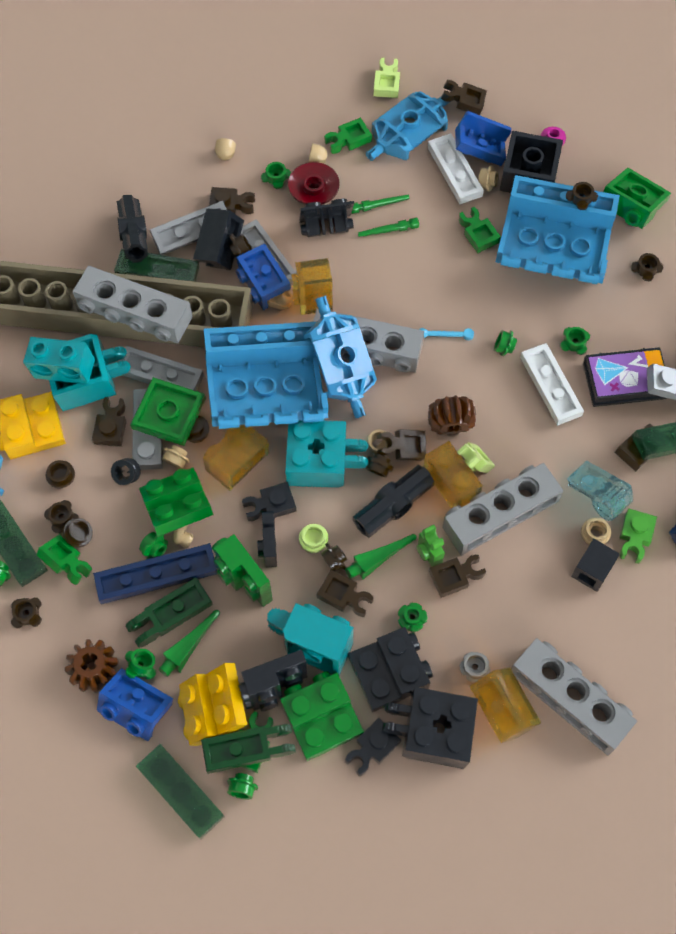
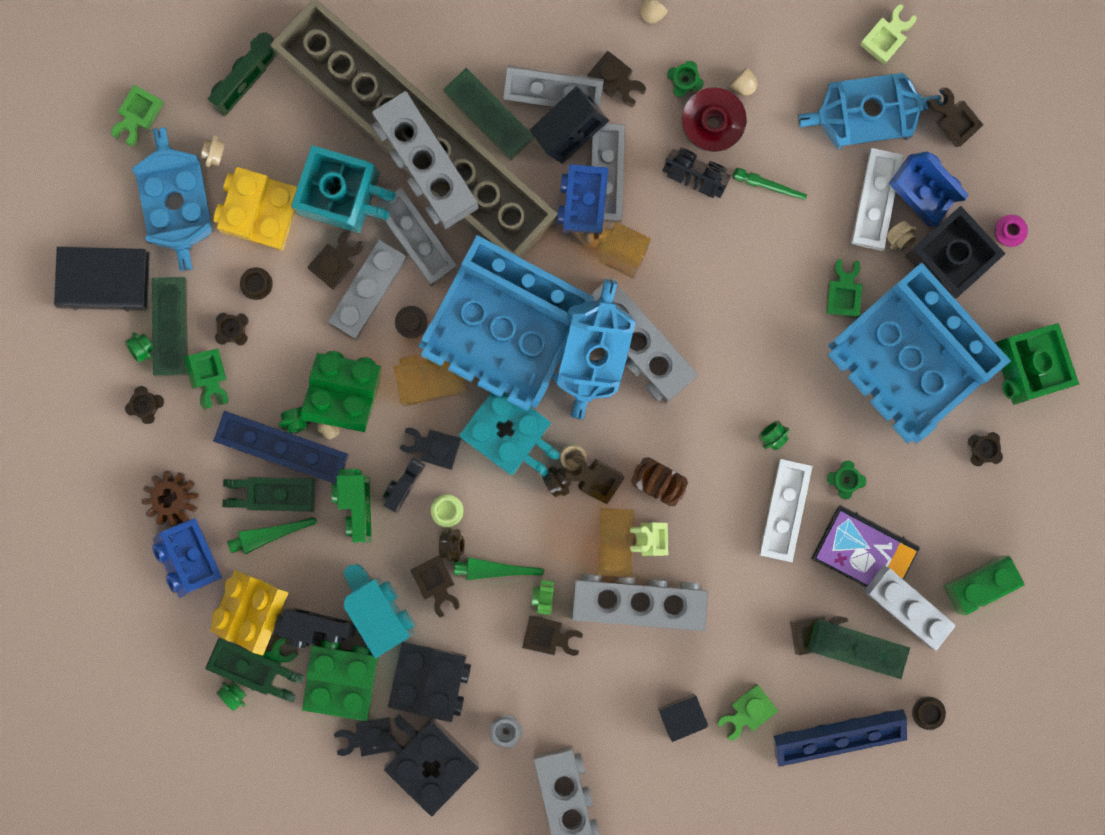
camera: 30 degrees right, 20 degrees up
(59, 360) = (315, 178): teal brick -> none
(77, 532) = (235, 357): dark brown plate -> none
(132, 228) = (490, 52): black piece -> none
(134, 470) = (325, 324): black bush -> none
(144, 658) = (223, 524): green plate -> none
(168, 411) = (394, 290): green tile -> none
(176, 456) = (373, 341): tan plate -> none
(180, 791) = (177, 663): clear green plate -> none
(240, 245) = (584, 151): dark brown plate -> none
(349, 134) = (799, 83): green plate -> none
(393, 500) = (545, 526): black piece -> none
(401, 226) = (771, 228): green piece -> none
(412, 625) = (489, 654): green plate -> none
(468, 334) = (747, 398): medium azure hinge -> none
(505, 704) = (502, 787): clear yellow brick -> none
(582, 189) = (974, 330): dark brown plate -> none
(599, 525) = (720, 690): tan plate -> none
(606, 491) = (746, 649): clear light blue plate -> none

